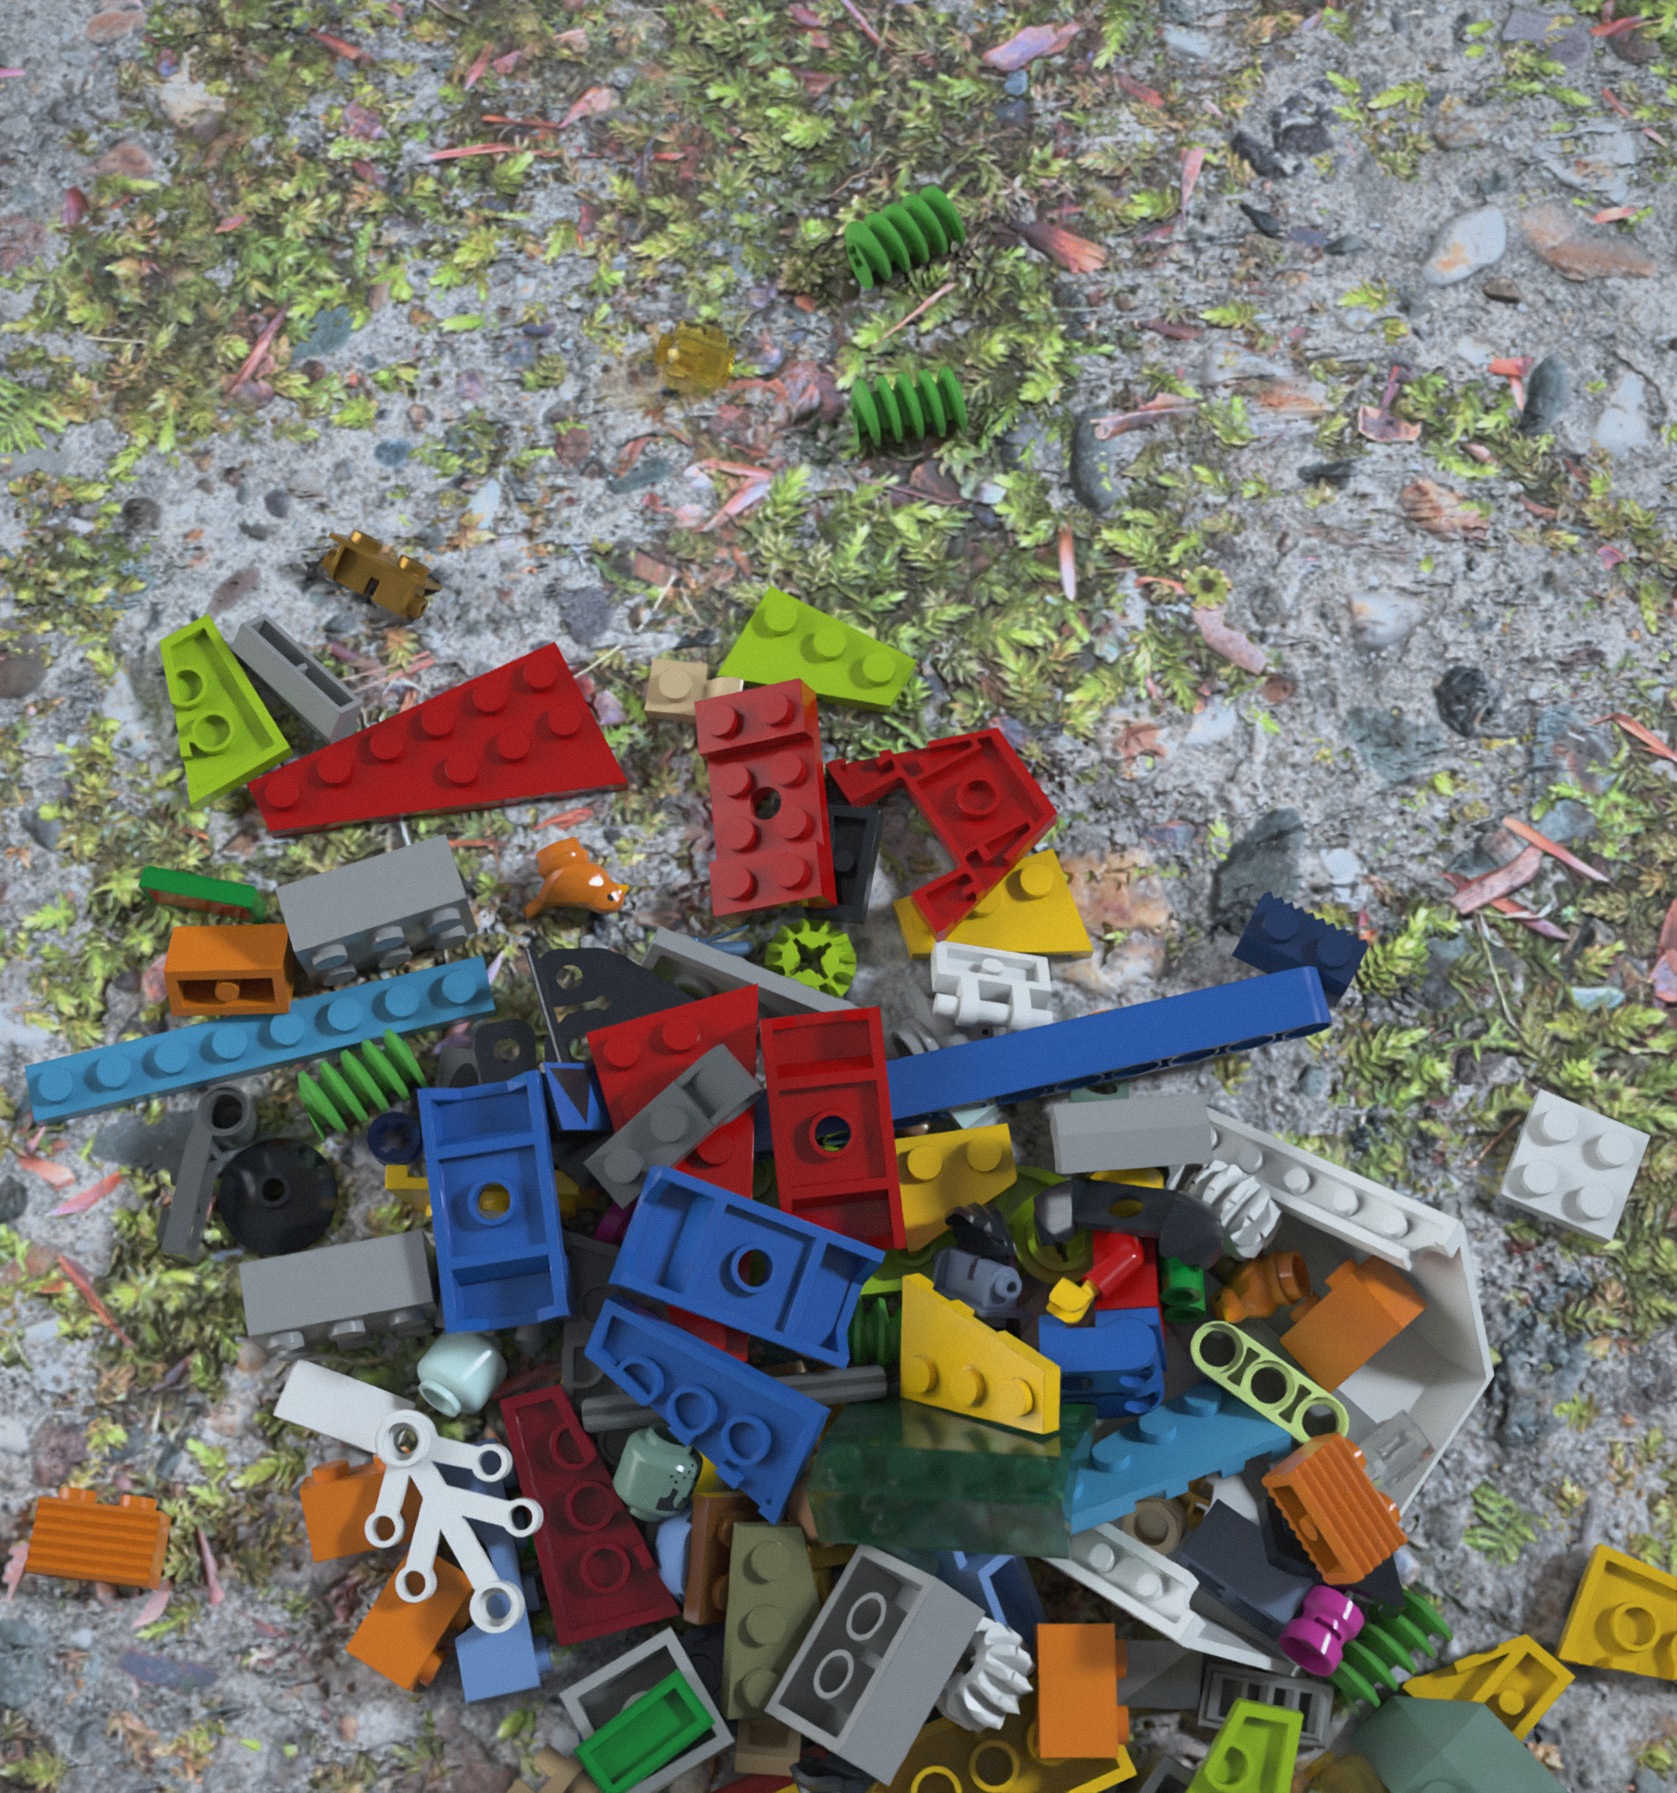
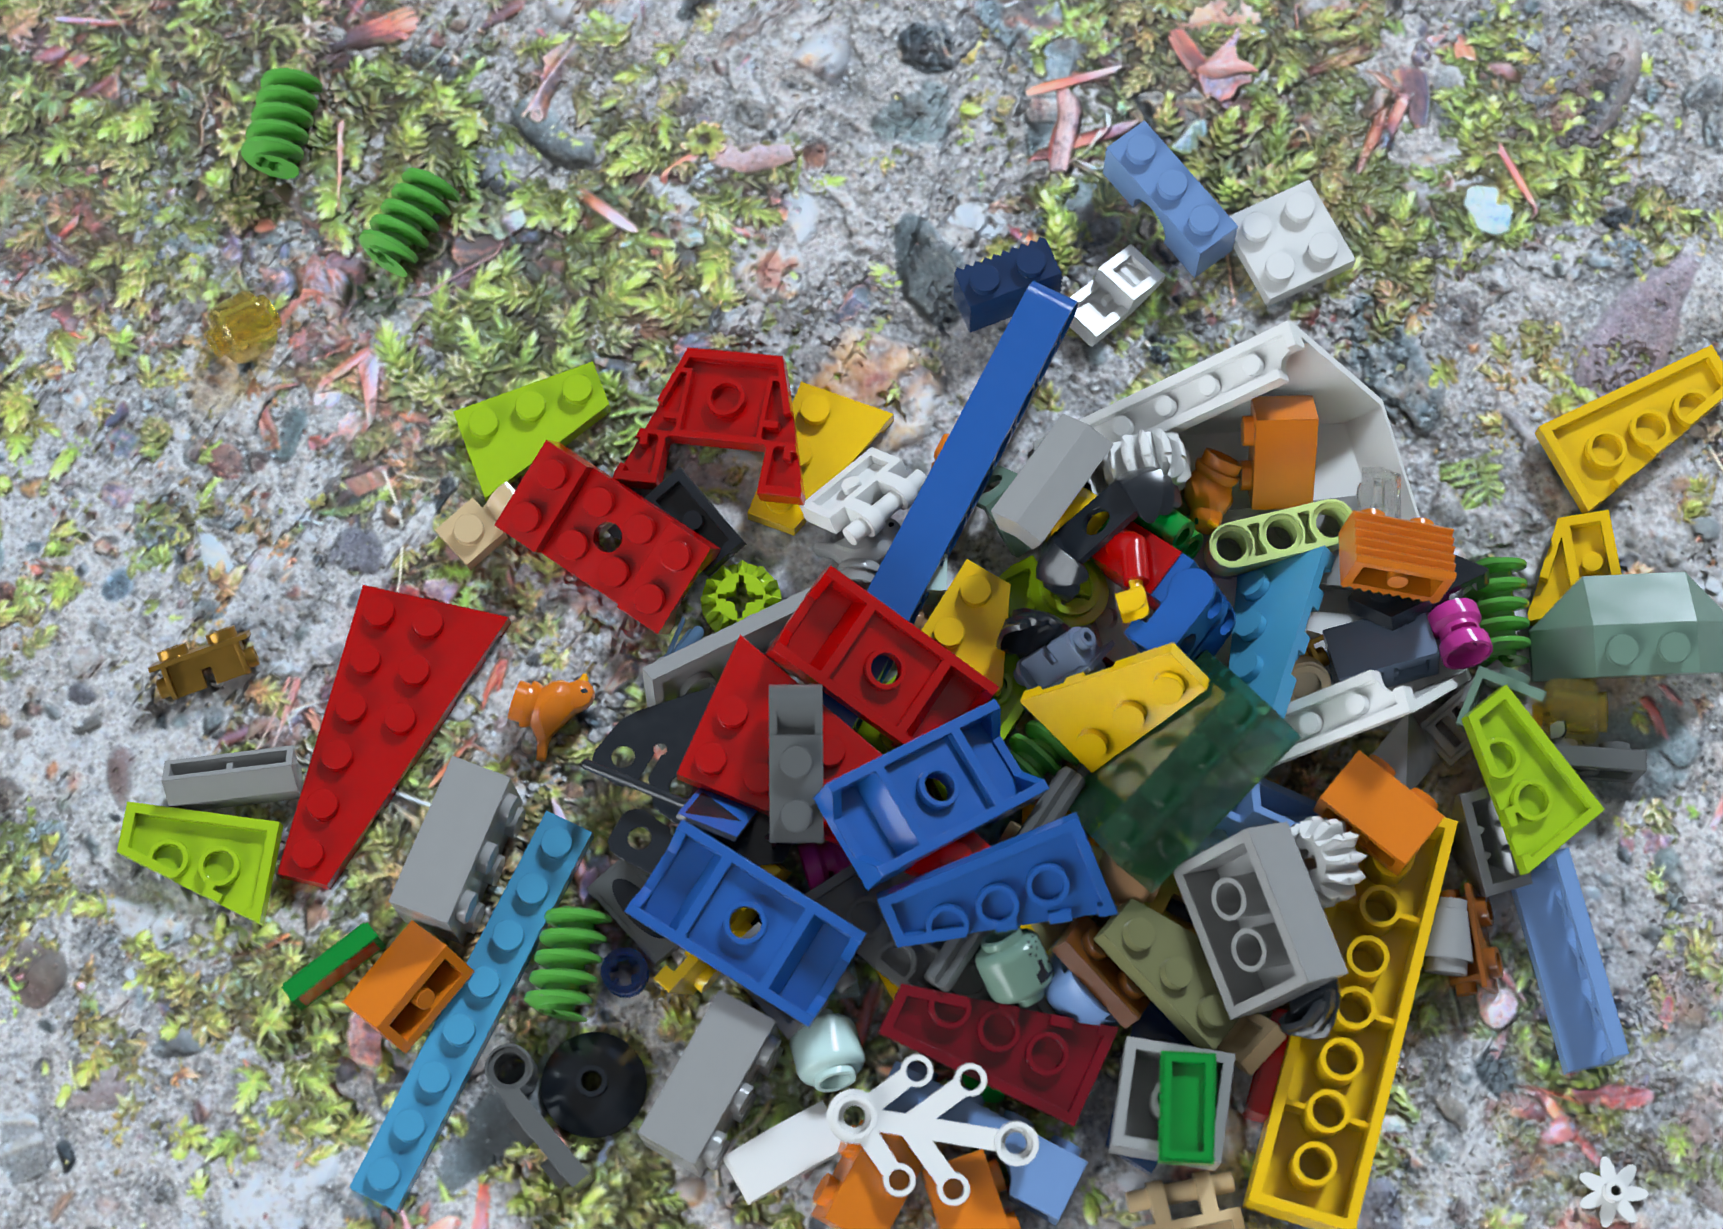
camera: 45 degrees left, 0 degrees up
(1315, 1711) = (1514, 679): none -> sand green bracket
(1379, 1051) = (1114, 294): none -> white slope
(1512, 1051) = (1192, 220): none -> medium blue arch

